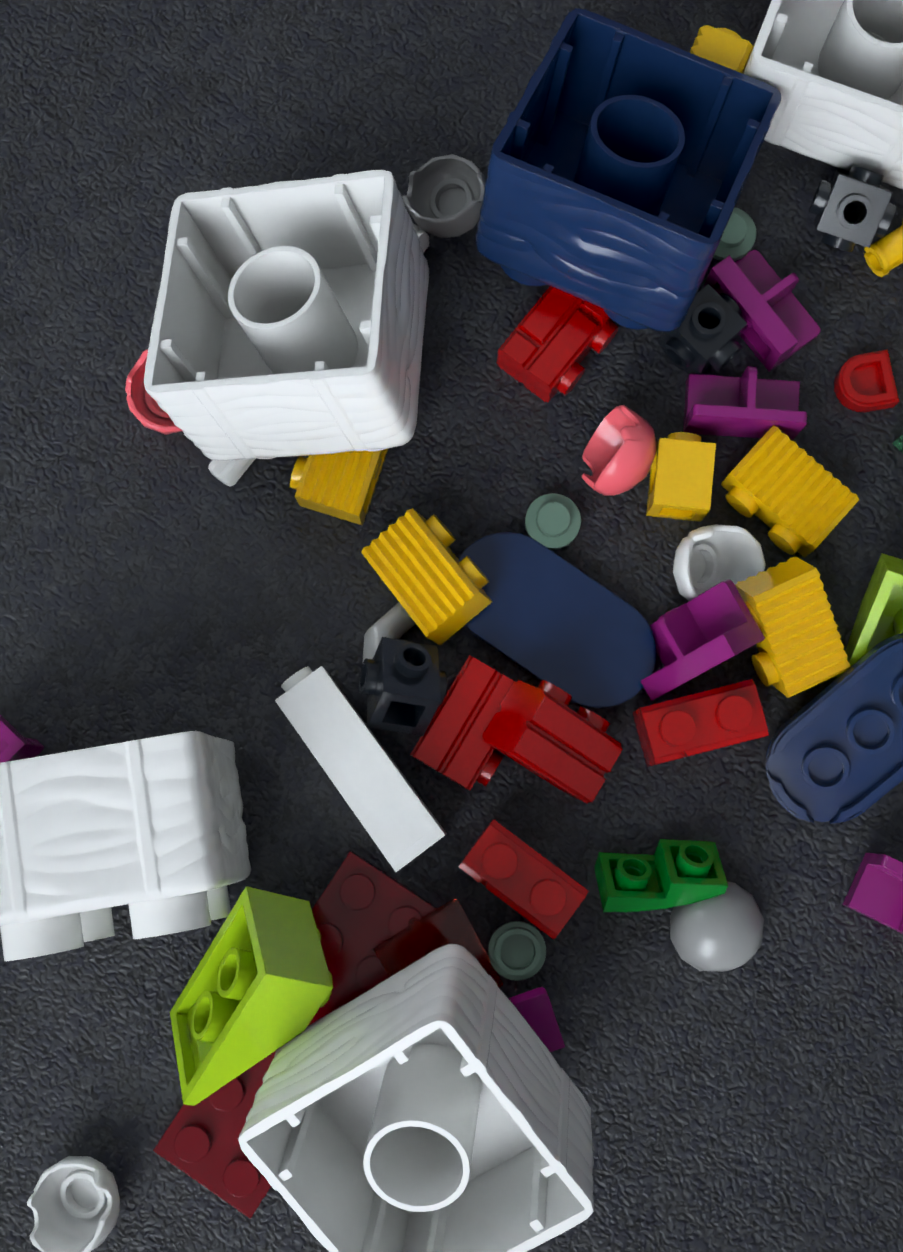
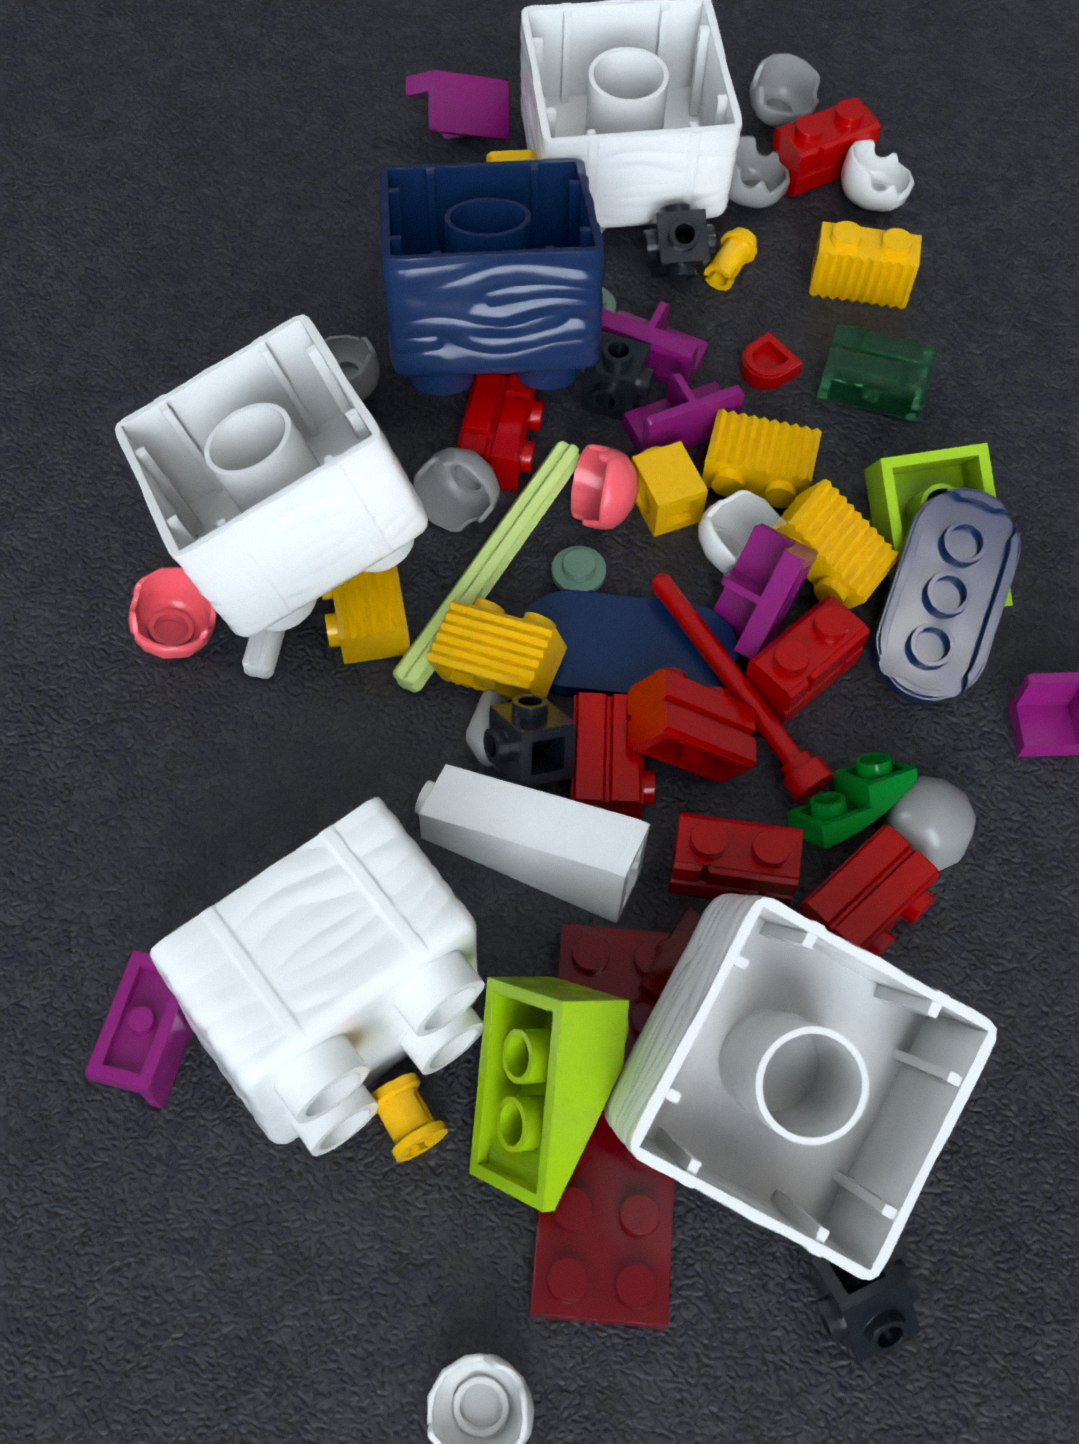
camera: 35 degrees left, 20 degrees down
(137, 957) = (407, 1117): none -> yellow bush
(483, 383) = (457, 488): none -> light grey hair
(487, 465) = (493, 557): none -> yellowish green axle
(619, 971) = (874, 892): none -> red brick
(633, 822) = (802, 771): none -> red piece

